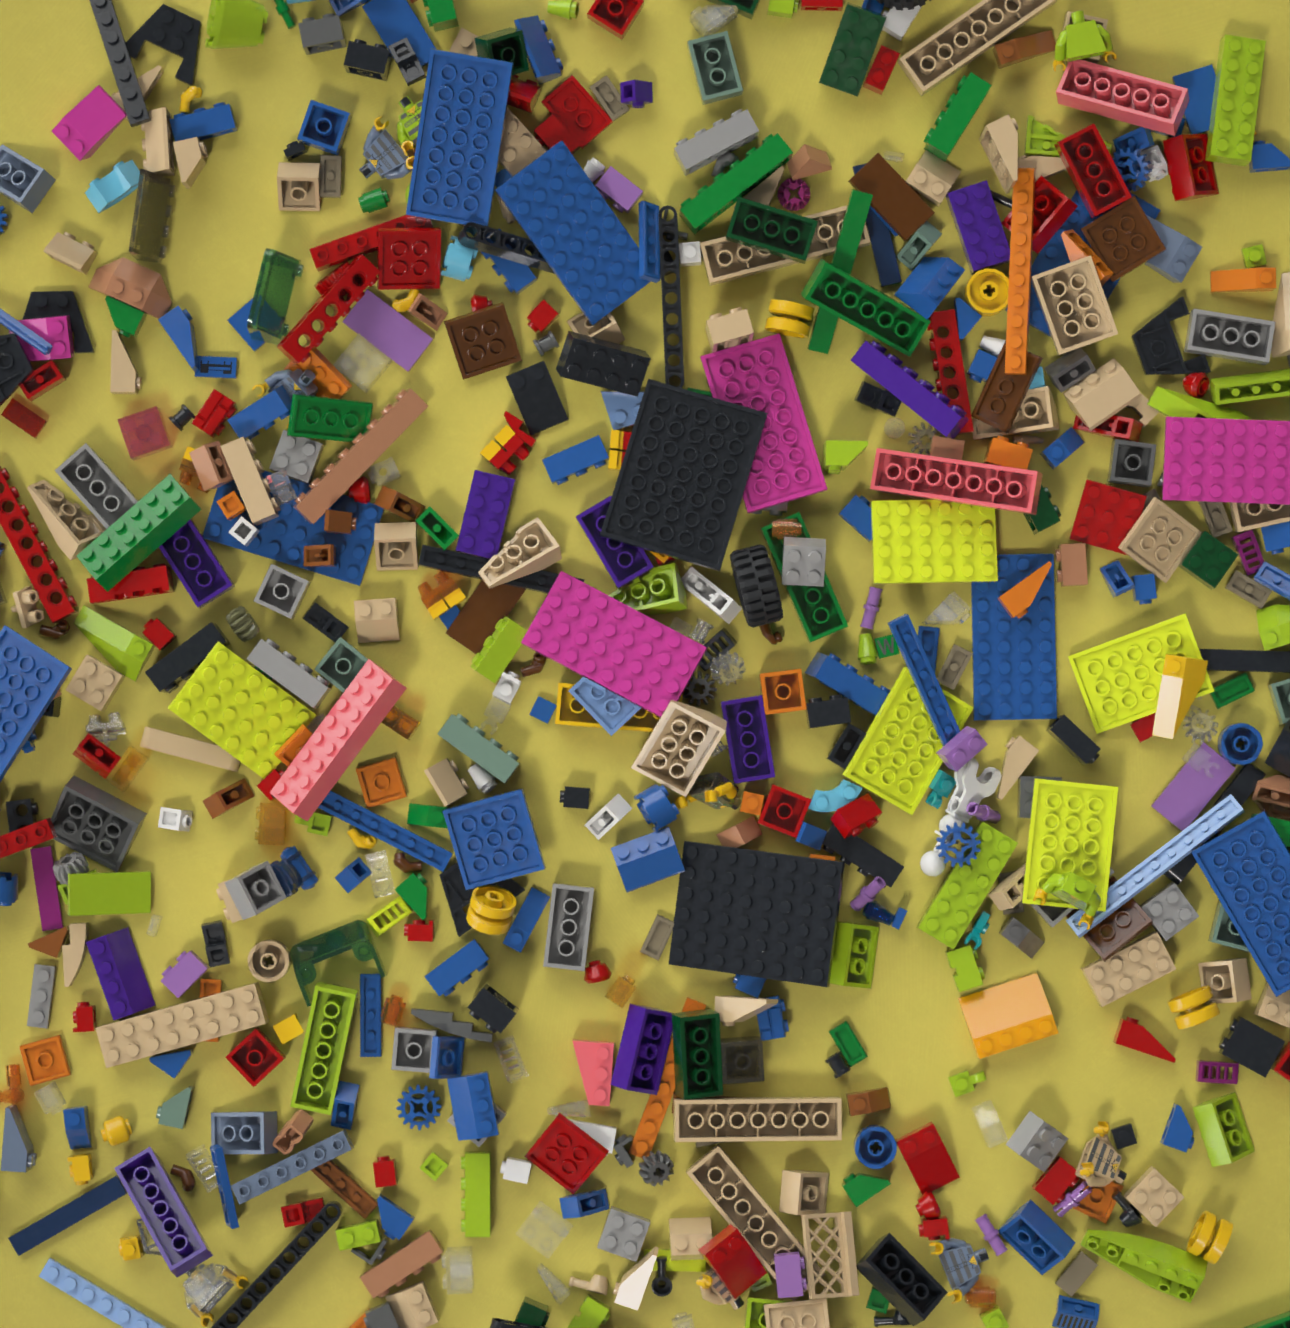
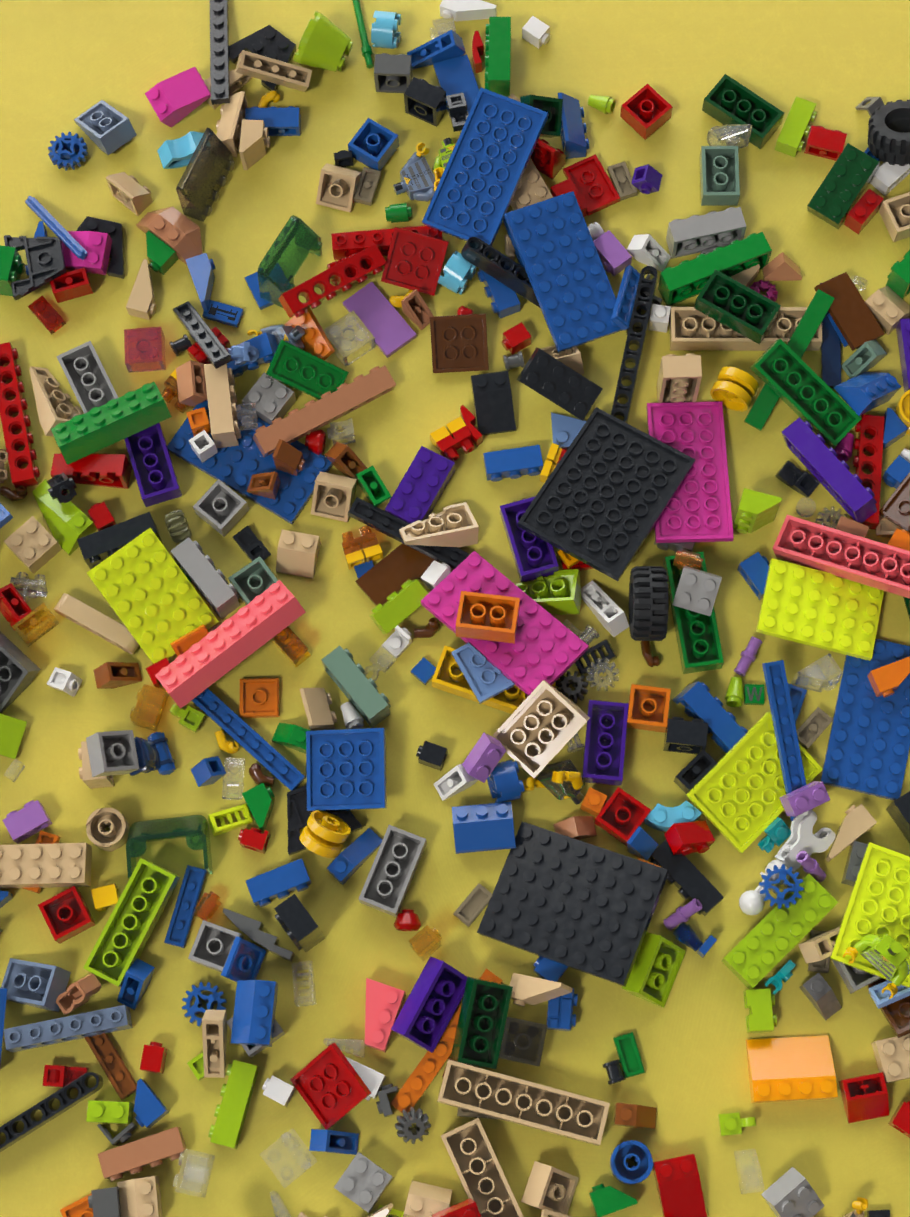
camera: 20 degrees right, 15 degrees down
(108, 617) = (62, 488): none -> black brick
(188, 68) = (273, 71): none -> tan brick
(205, 406) = (202, 334): none -> tile
(215, 943) = (64, 802): black slope -> none
(256, 421) = (243, 353): none -> medium blue hips
(441, 1143) = (214, 1043): none -> tan slope
(528, 605) = (435, 574): none -> white brick
(596, 648) = (487, 617): none -> orange brick
(630, 792) = (484, 757): none -> medium lavender brick
(659, 178) = (648, 251): none -> white slope
(921, 353) = (845, 447): none -> dark pink cone
(1084, 1024) = (865, 1097): none -> red slope

